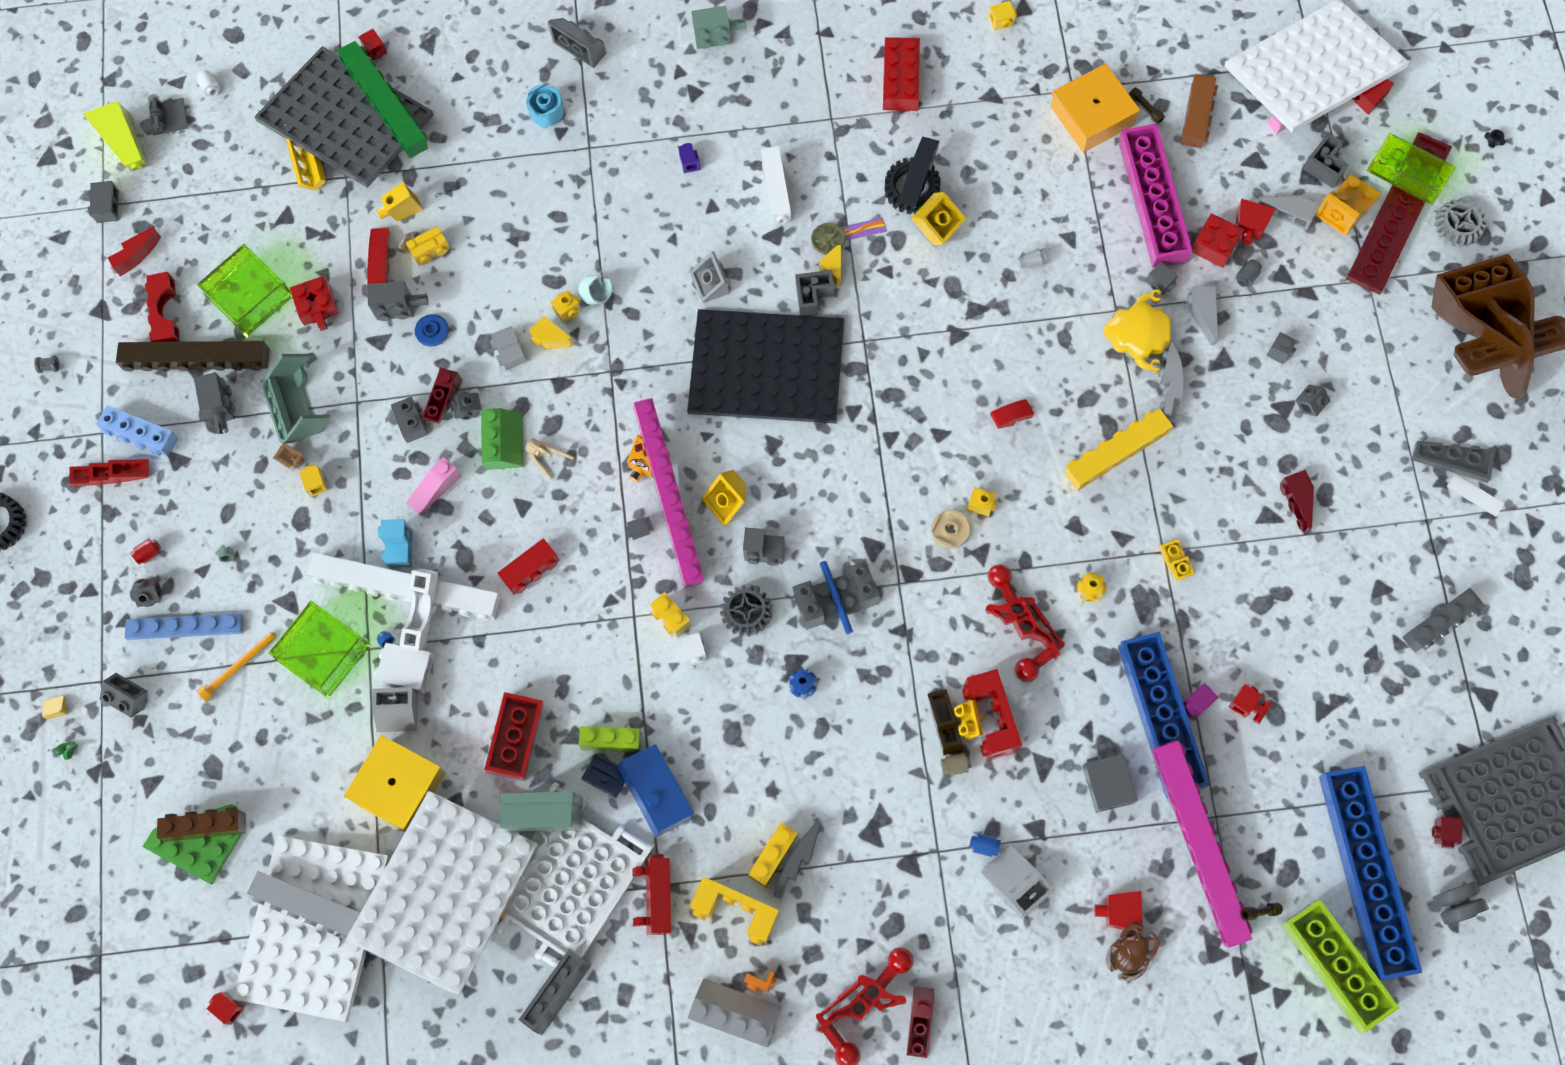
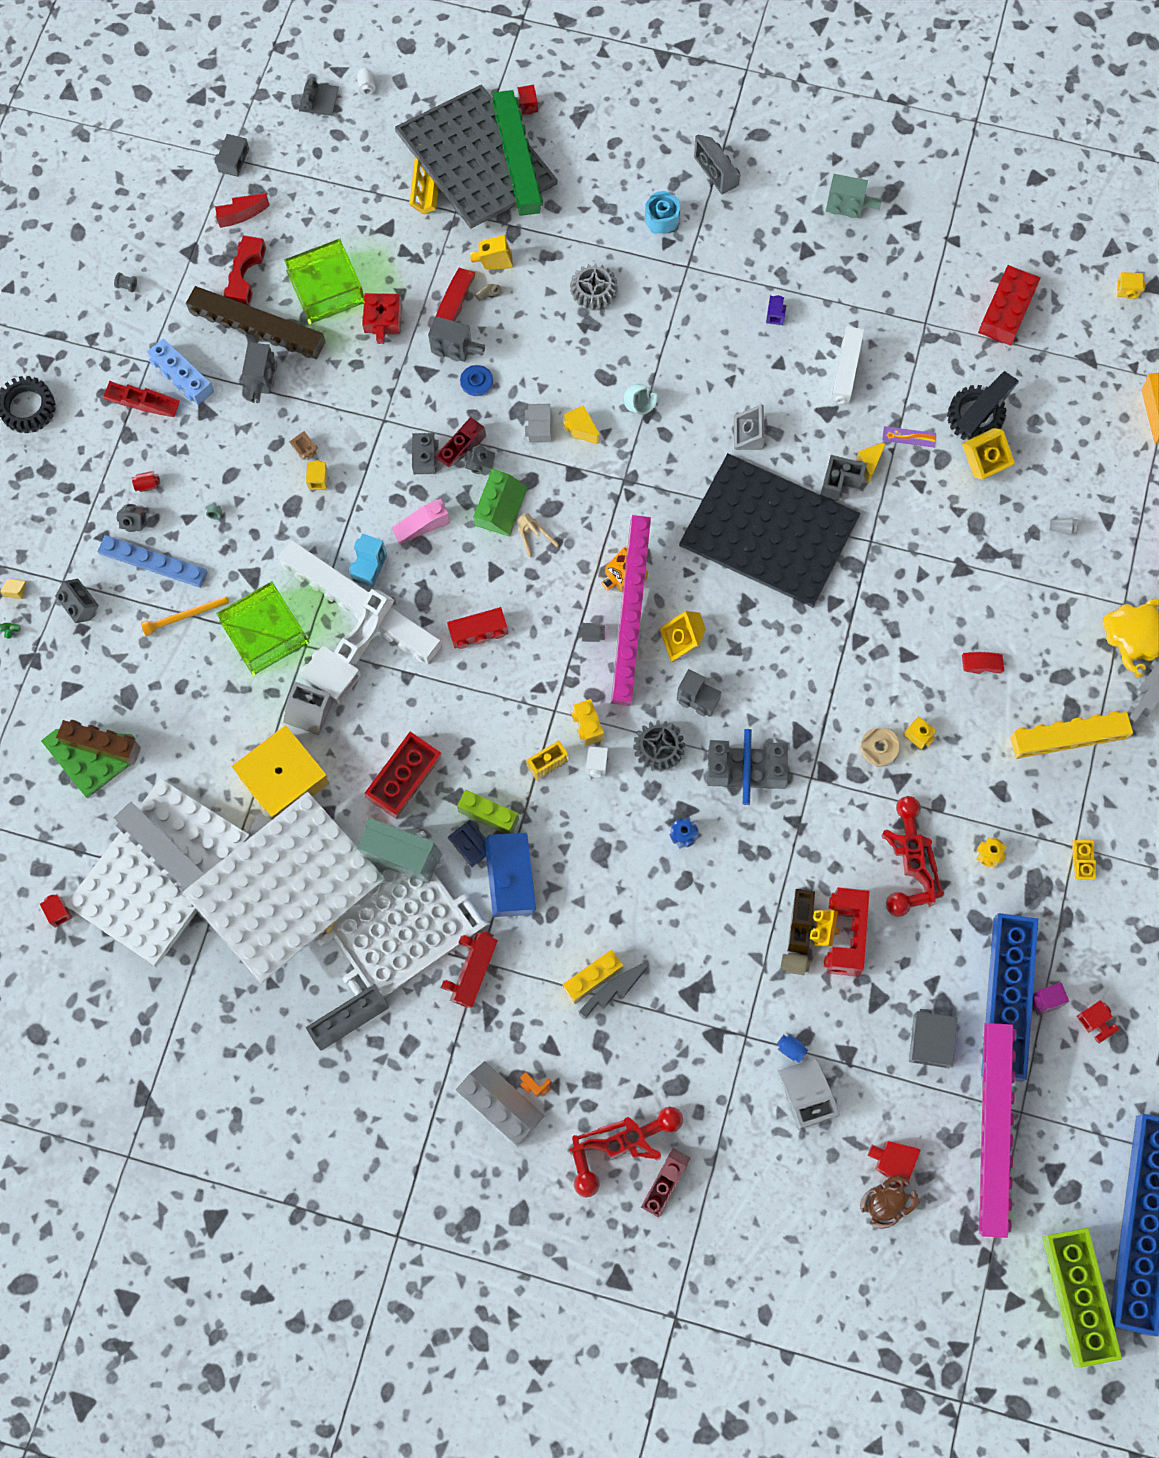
camera: 20 degrees right, 0 degrees up
(117, 130) = (269, 97): neon yellow slope -> none
(287, 400) = (323, 395): sand green windscreen -> none
(385, 637) = (323, 640): blue hinge -> none
(428, 246) = (504, 302): yellow brick -> none
(496, 199) = (604, 288): none -> light grey gear
(566, 305) = (607, 404): yellow brick -> none
(646, 666) = (547, 760): none -> yellow brick
(708, 897) = (518, 989): yellow plate -> none
(827, 237) = (875, 431): olive wheel -> none
(1252, 913) = (1037, 1218): dark brown bar -> none

